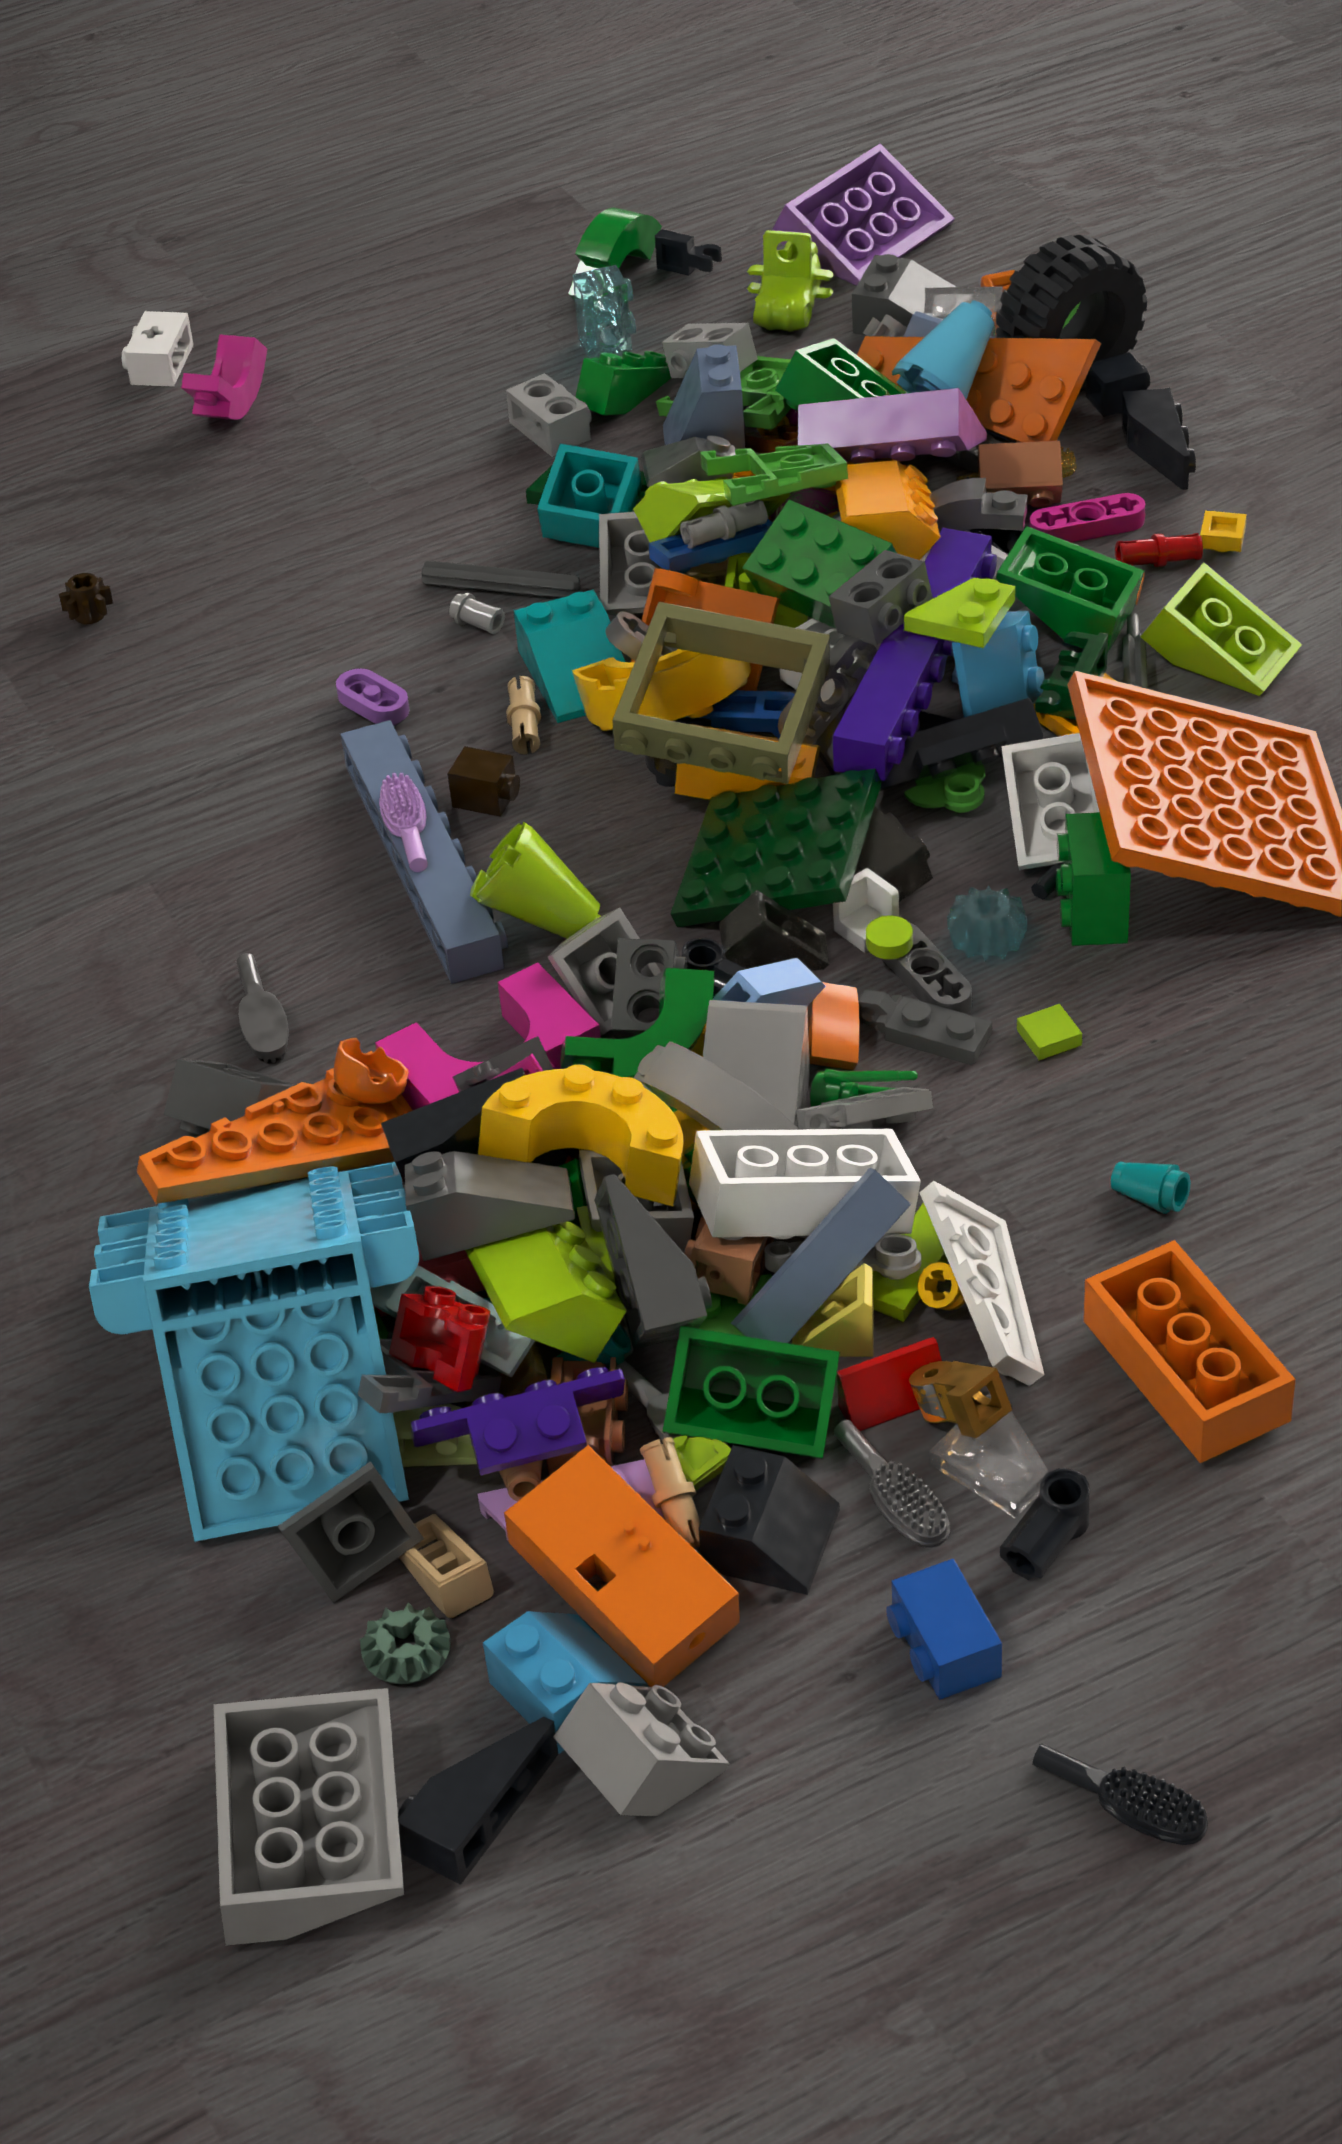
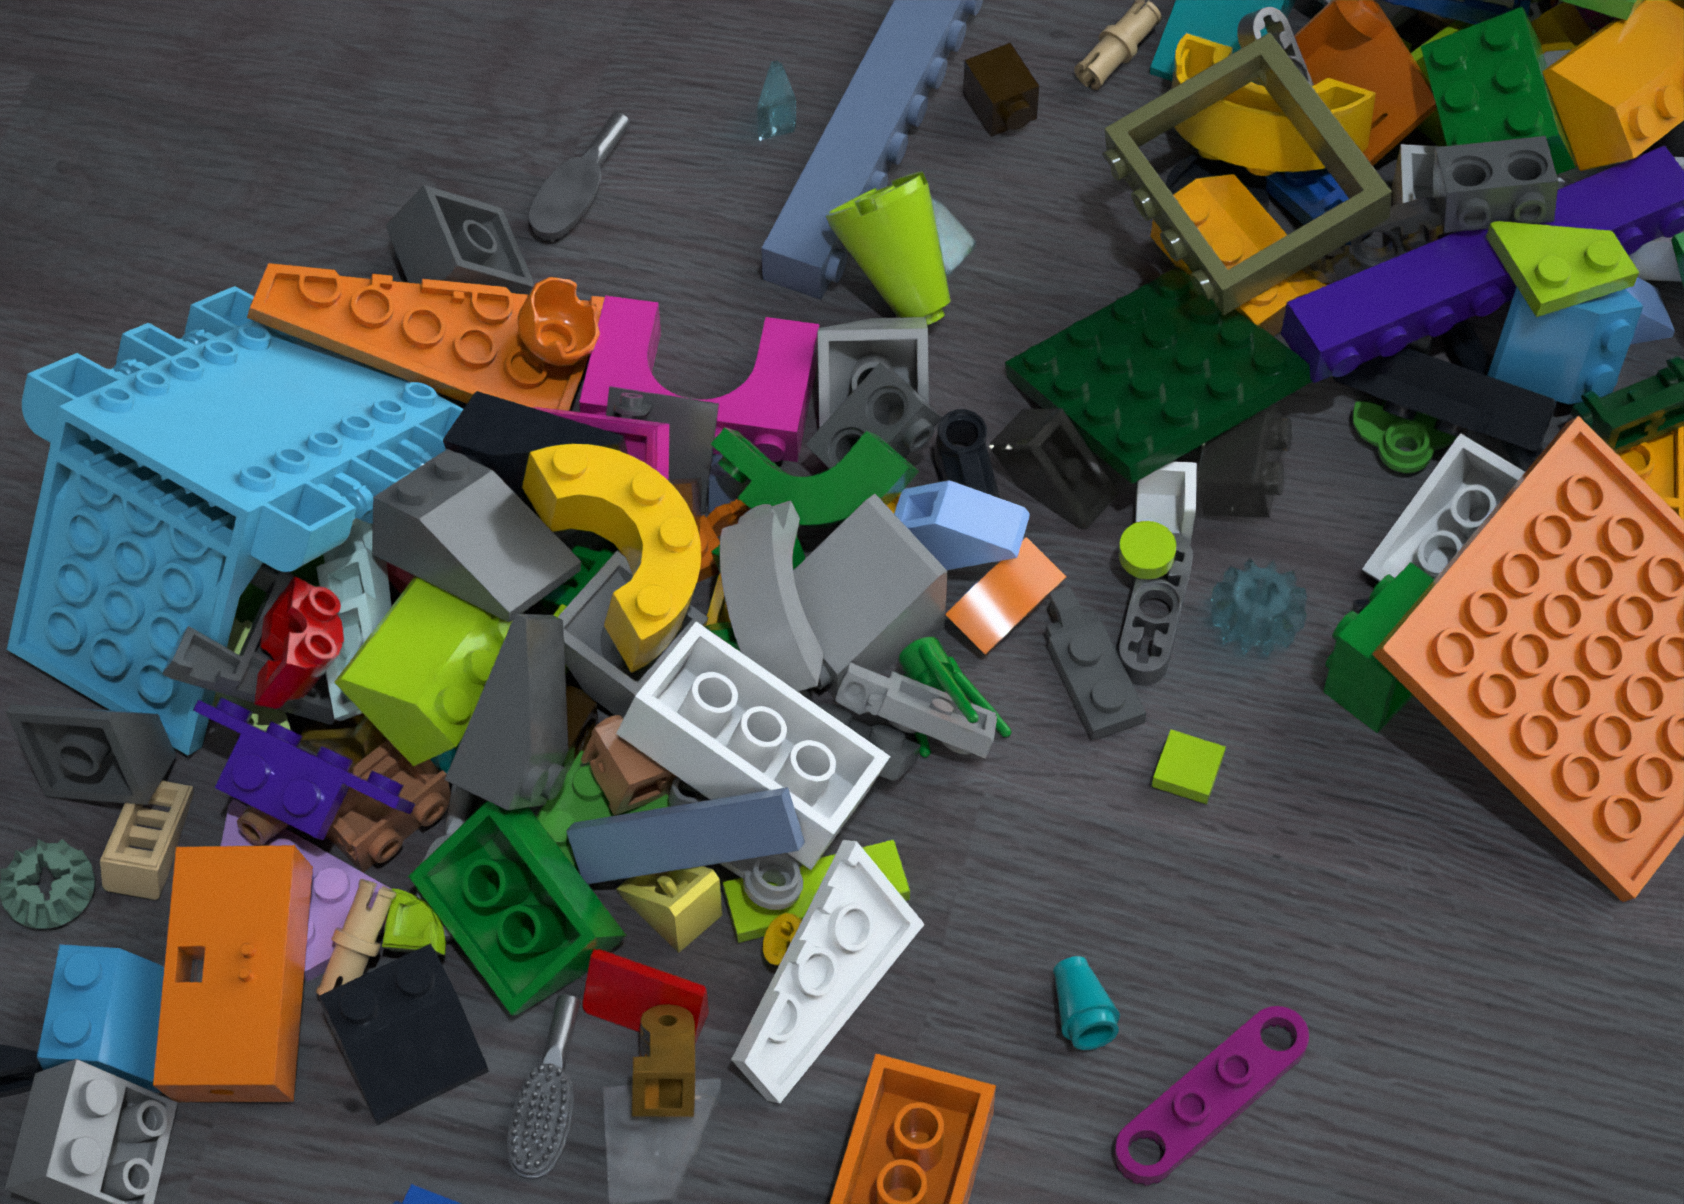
camera: 40 degrees right, 15 degrees up
(344, 880) = (776, 104): none -> clear light blue slope
(405, 816) = (874, 80): lavender piece -> none
(1278, 1176) = (1211, 1095): none -> magenta plate

